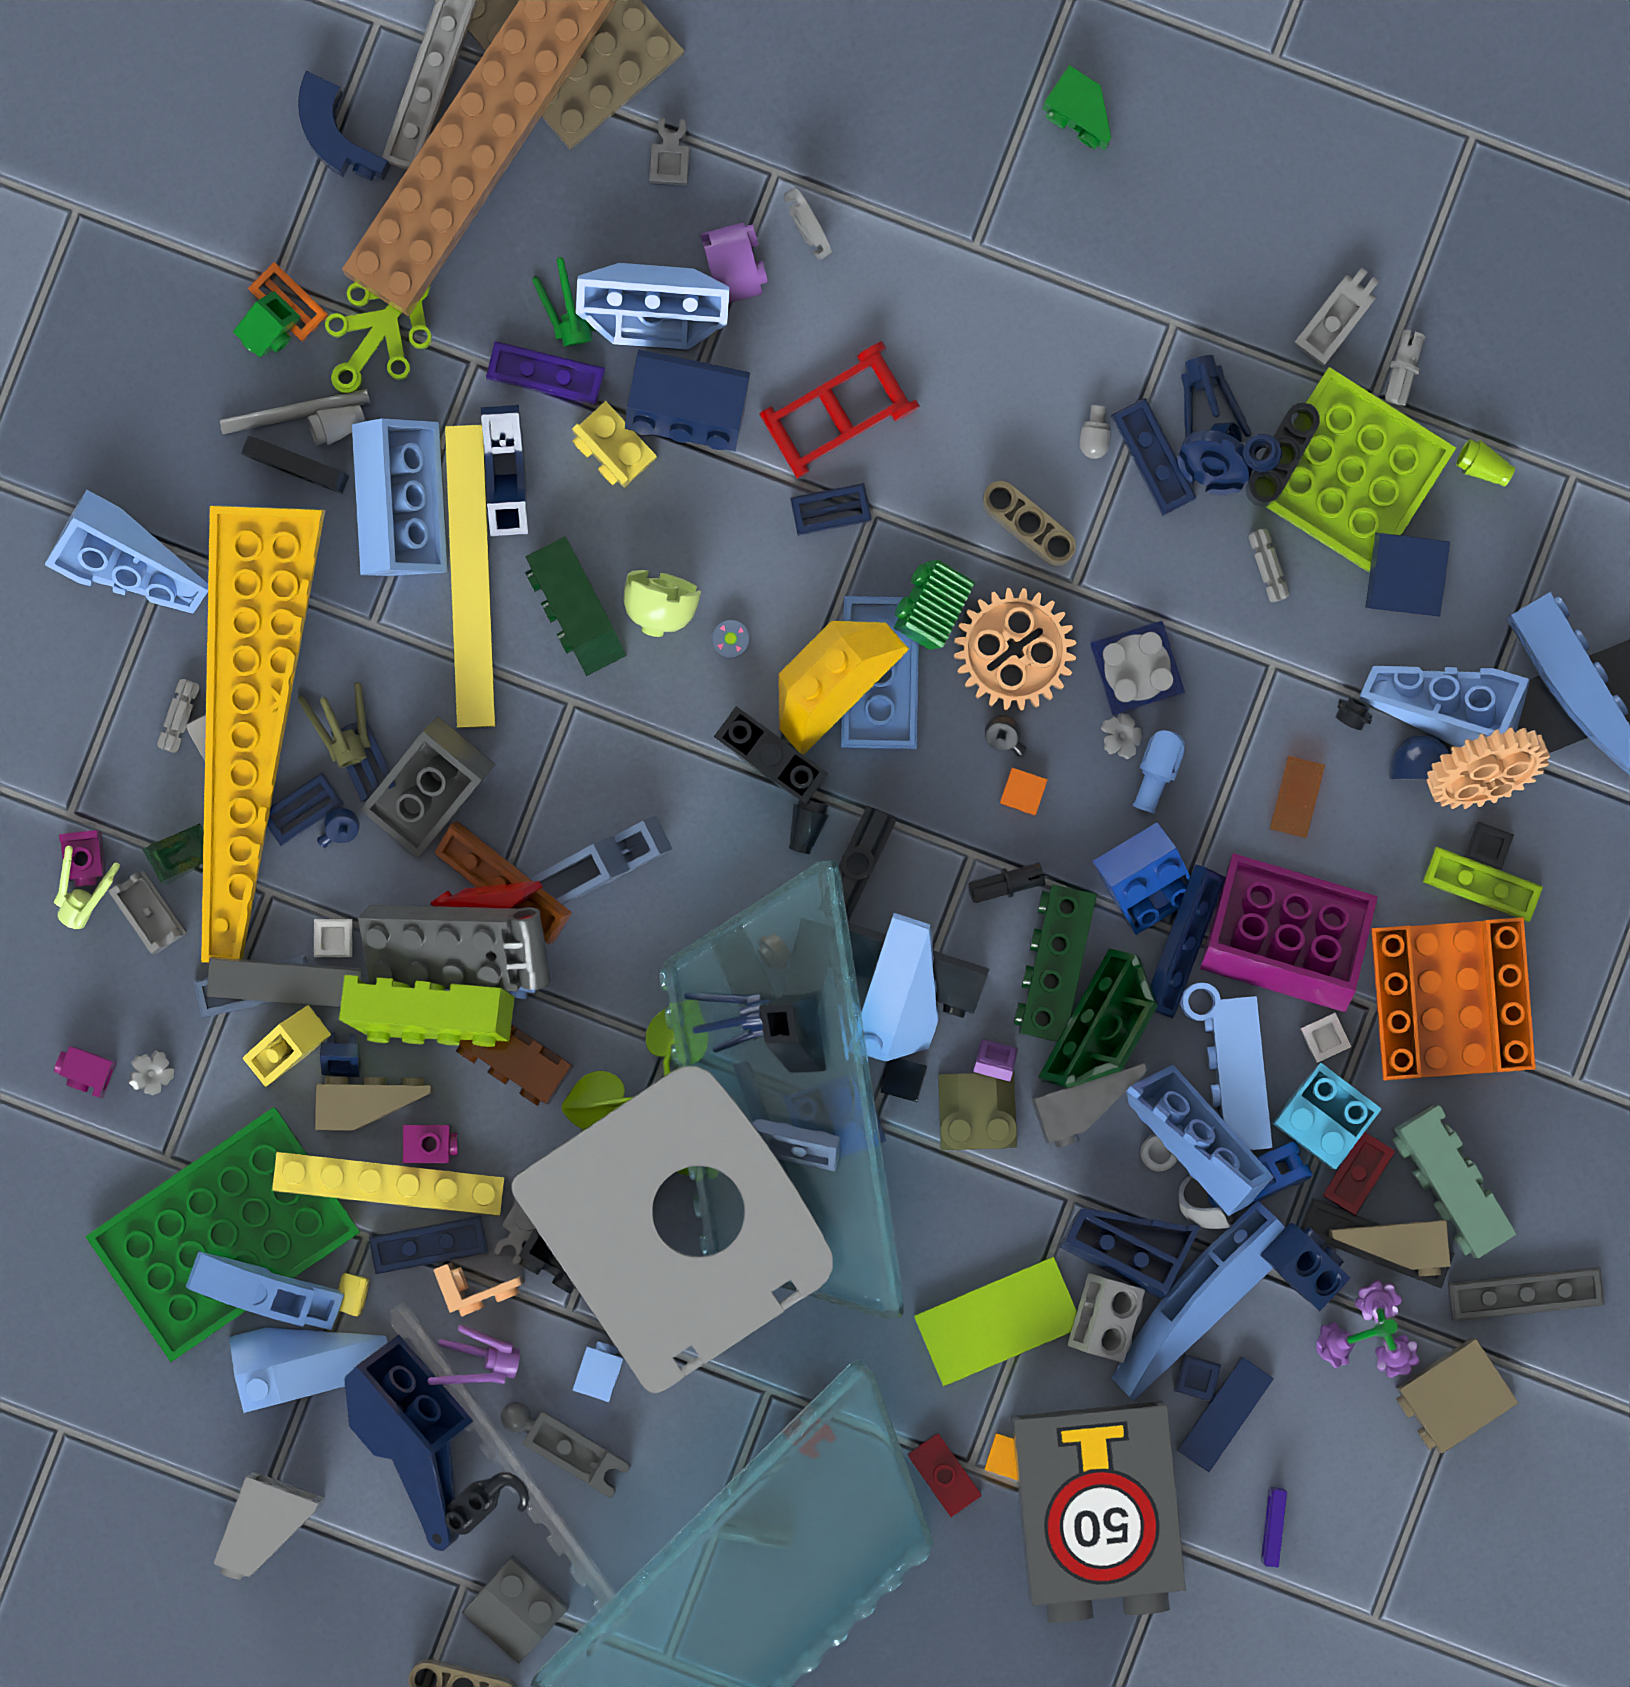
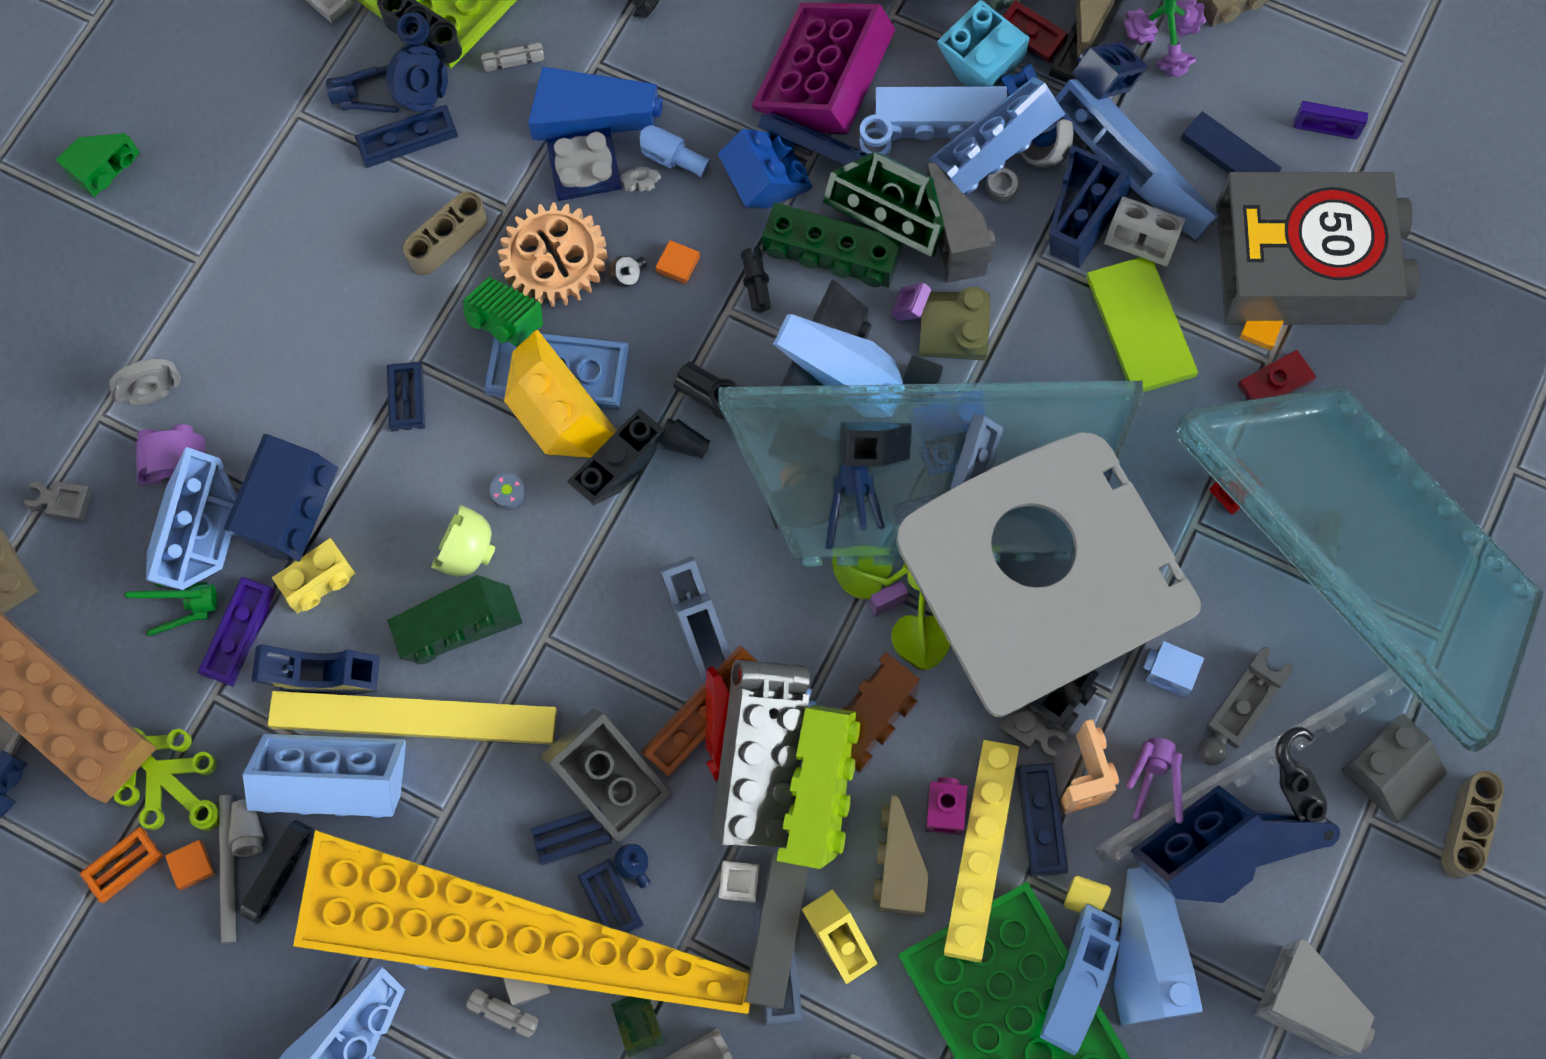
camera: 75 degrees left, 15 degrees down
(267, 325) = (136, 883): green brick -> none
(294, 372) = (190, 865): none -> orange tile
(340, 1058) = (856, 883): dark blue tile -> none
(344, 746) = (555, 845): olive plant -> none
(646, 1064) = (888, 598): none -> medium lavender tile
(868, 358) = (328, 331): red piece -> none
(1095, 434) = (378, 176): light grey cylinder -> none
(1197, 1377) = (1199, 171): dark blue tile -> none
(1209, 662) = (584, 102): none -> blue slope
(1297, 797) = (710, 53): clear orange plate -> none
(1325, 1037) = (914, 50): white tile -> none

